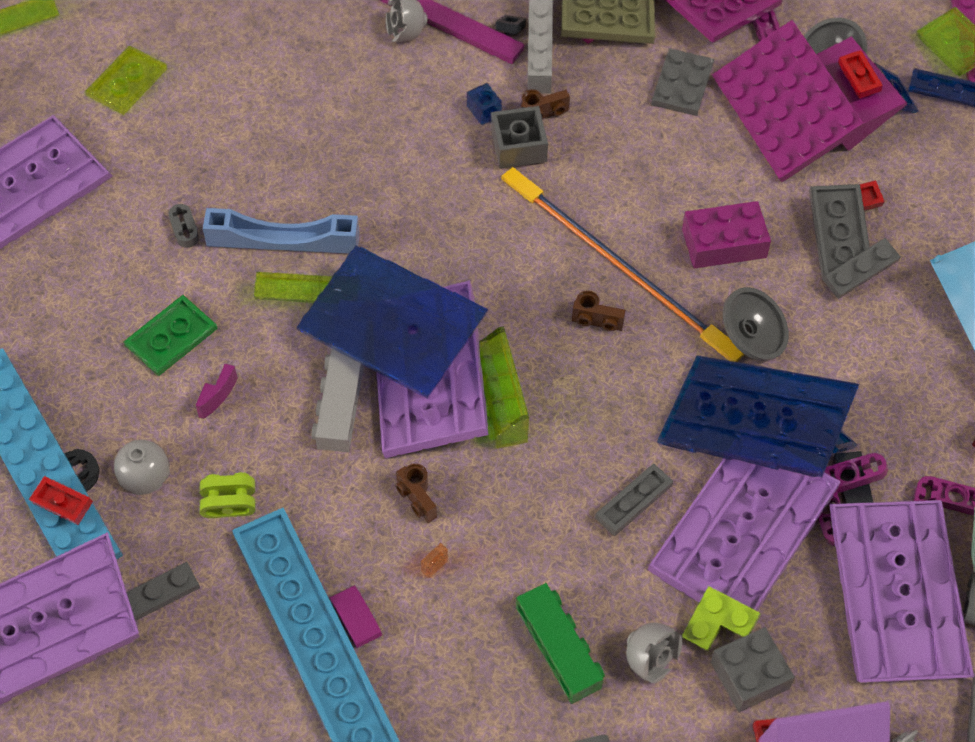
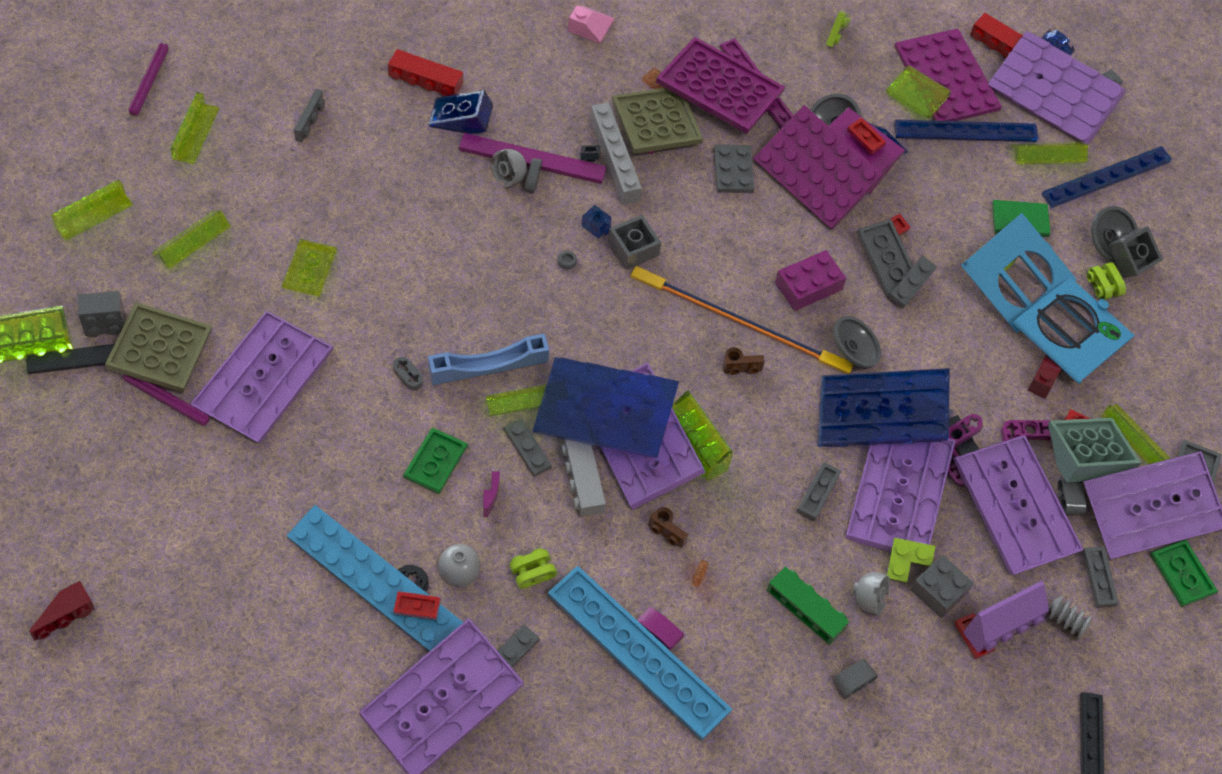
camera: 25 degrees left, 0 degrees up
(287, 348) = (527, 447): none -> dark grey plate
(430, 34) = (533, 175): none -> dark grey beam
(431, 141) = (567, 260): none -> dark grey tile
(549, 105) = (648, 209): reddish brown plate -> none

